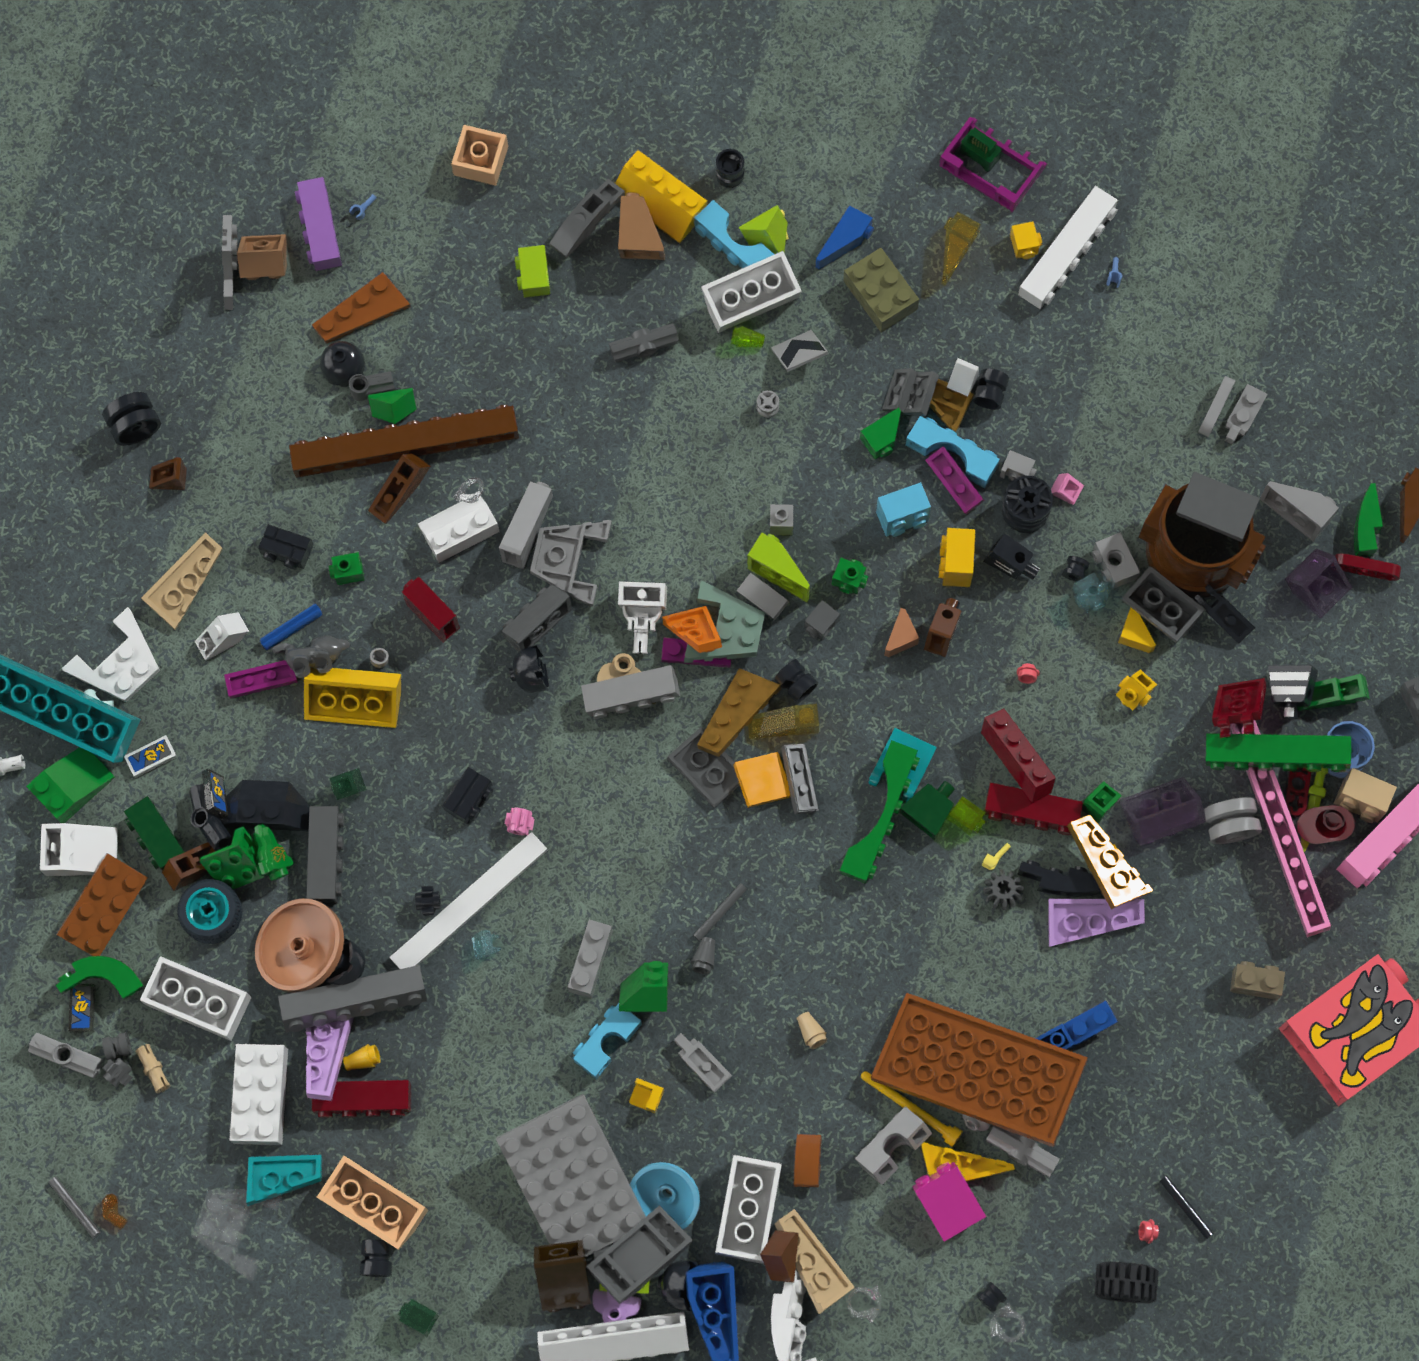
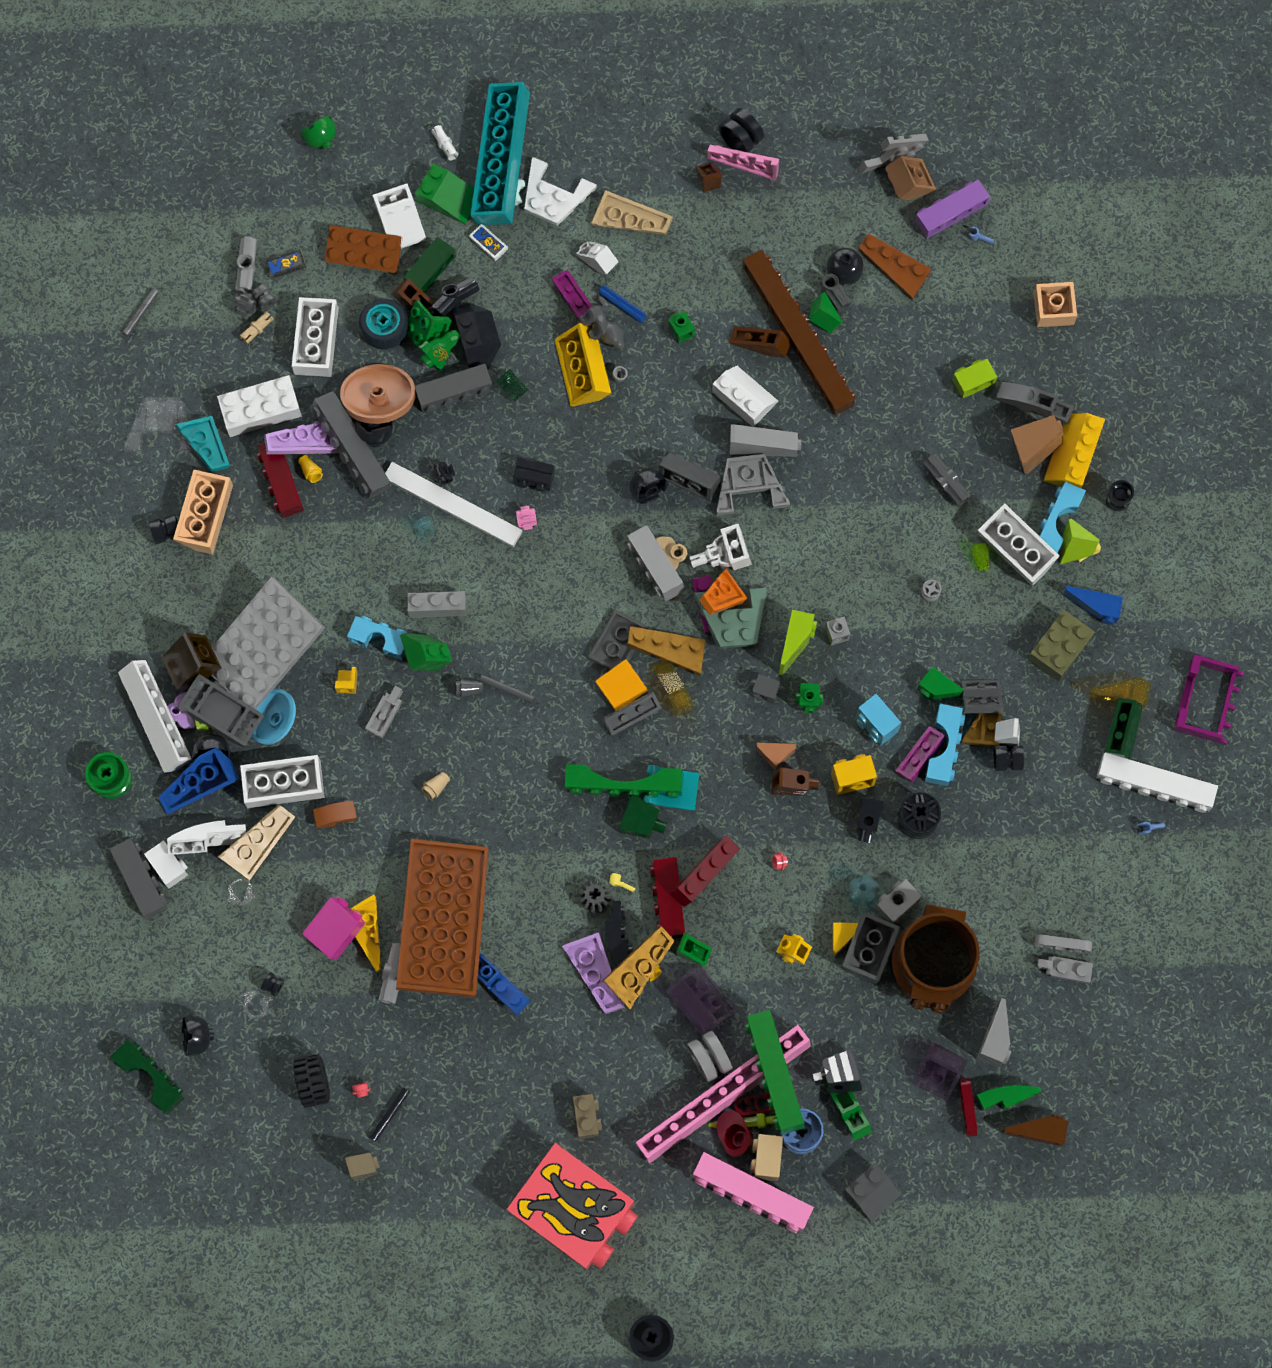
camera: 70 degrees right, 0 degrees up
(101, 967) = (317, 273): green arch -> none
(110, 1211) = (144, 337): clear orange arm -> none
(171, 425) = (745, 161): none -> bright pink wing
(214, 793) = (473, 295): tile -> none
(285, 547) = (682, 277): black brick -> none
(418, 1317) = (130, 573): clear green brick -> none
(430, 609) = (668, 395): dark red brick -> none
(469, 498) = (770, 387): clear piece -> none
(762, 596) = (769, 637): light grey slope -> none
(780, 1256) = (253, 814): reddish brown slope -> none
(796, 681) = (708, 685): black wheel -> none
(799, 350) = (984, 599): light grey piece -> none
(902, 1130) = (352, 865): light grey arch -> none
(949, 1133) = (388, 915): yellow piece -> none
(967, 816) = (644, 849): clear neon green brick -> none
(980, 149) = (1215, 686): dark green piece -> none
(998, 258) = (1124, 728): none -> dark green brick
(1017, 466) = (949, 800): light grey brick -> none
(1025, 240) = (1149, 746): yellow brick -> none
(1067, 488) = (947, 846): bright pink slope -> none
(1075, 568) = (880, 871): black wheel -> none
(1217, 506) = (956, 954): dark grey tile -> none
(1226, 615) = (883, 1002): black hinge -> none
(1239, 703) = (805, 1031): dark red tile -> none
(1241, 1255) = (362, 1166): none -> dark tan slope

